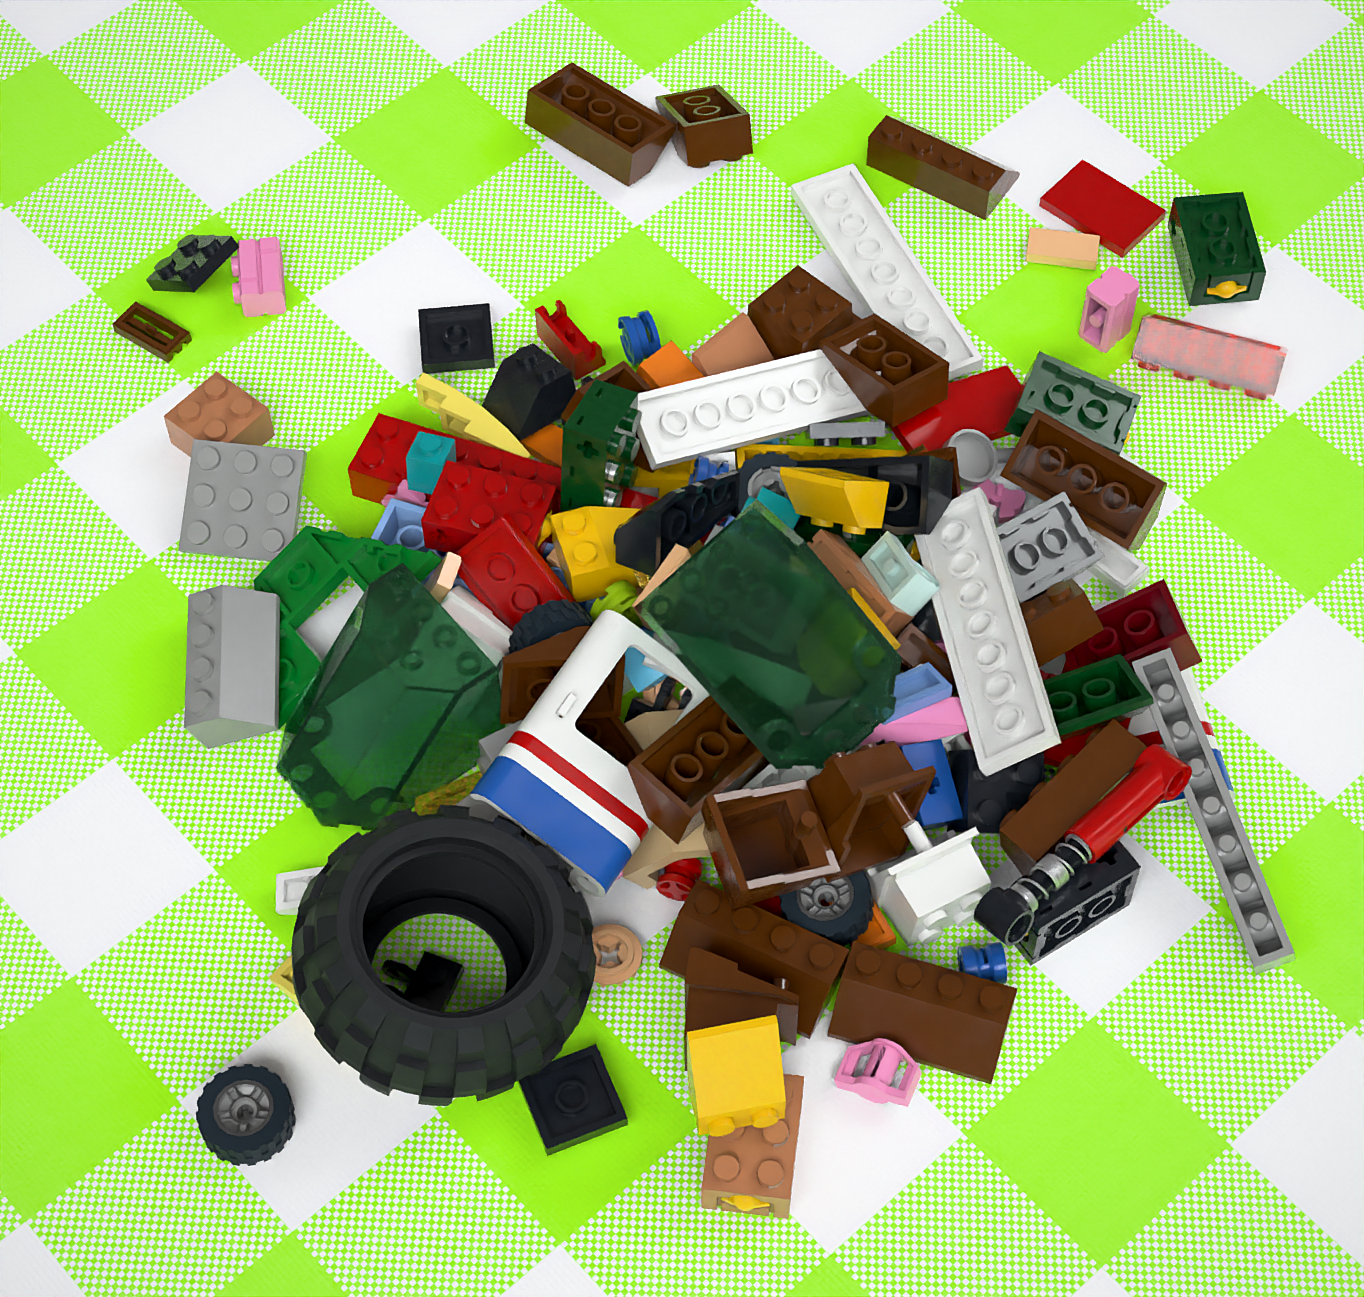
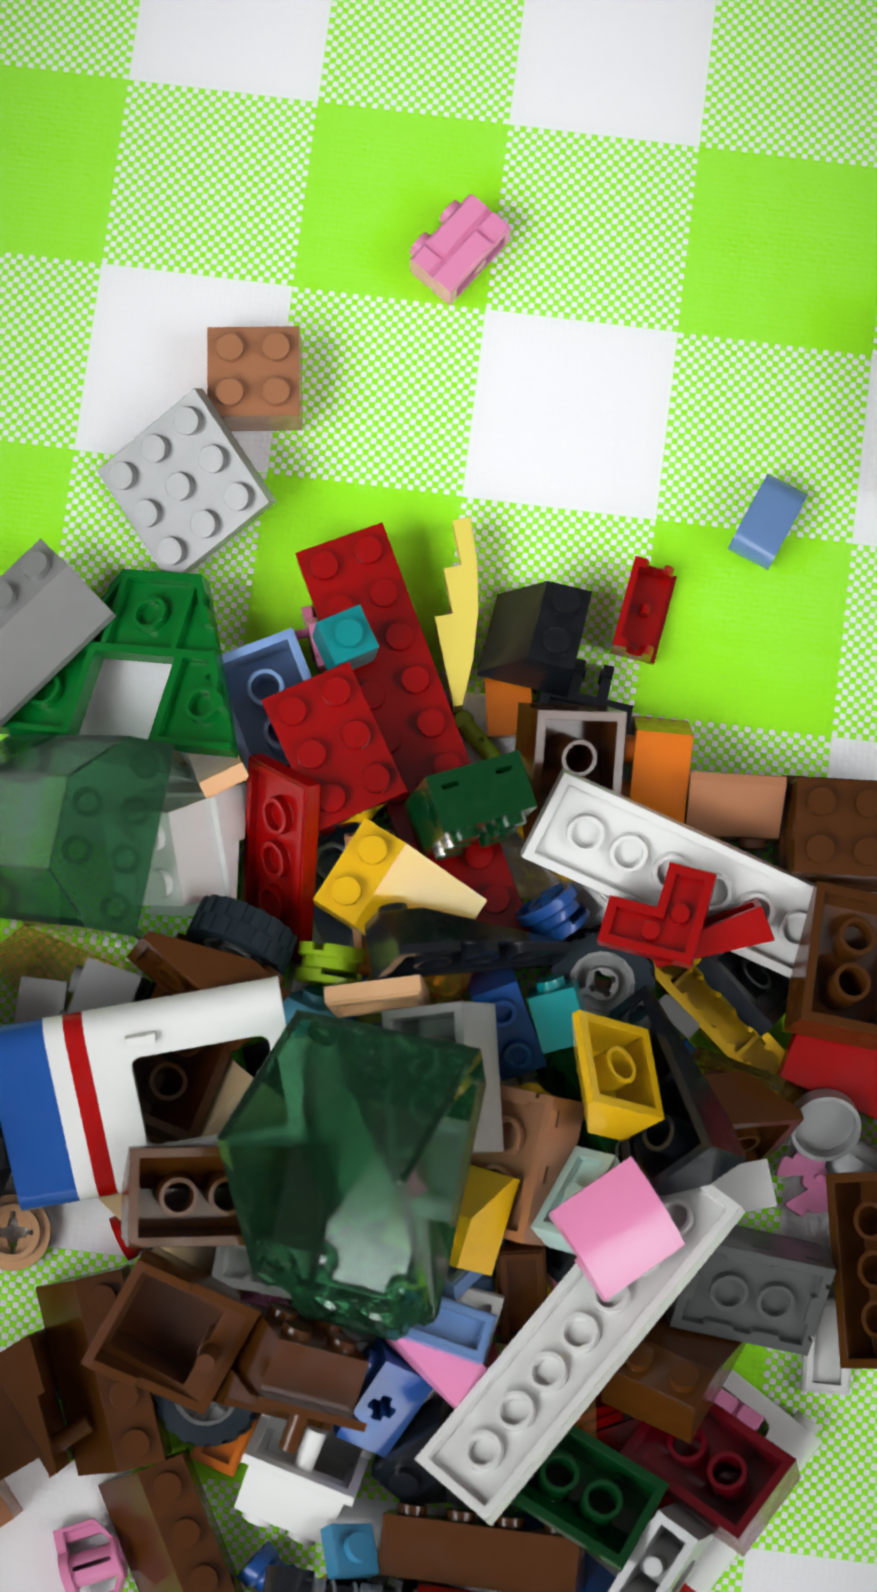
camera: 50 degrees right, 25 degrees up
(147, 335) = (319, 241): reddish brown tile -> none
(191, 263) = (414, 172): black plate -> none
(456, 338) = (551, 501): black plate -> none
(582, 247) = (767, 521): none -> medium blue beam
(639, 337) = (693, 679): blue wheel -> none
(772, 423) = (666, 931): none -> red plate
(804, 405) = (732, 930): none -> red piece
(934, 547) = (617, 1228): none -> bright pink slope
(1007, 862) = (349, 1551): none -> dark azure plate

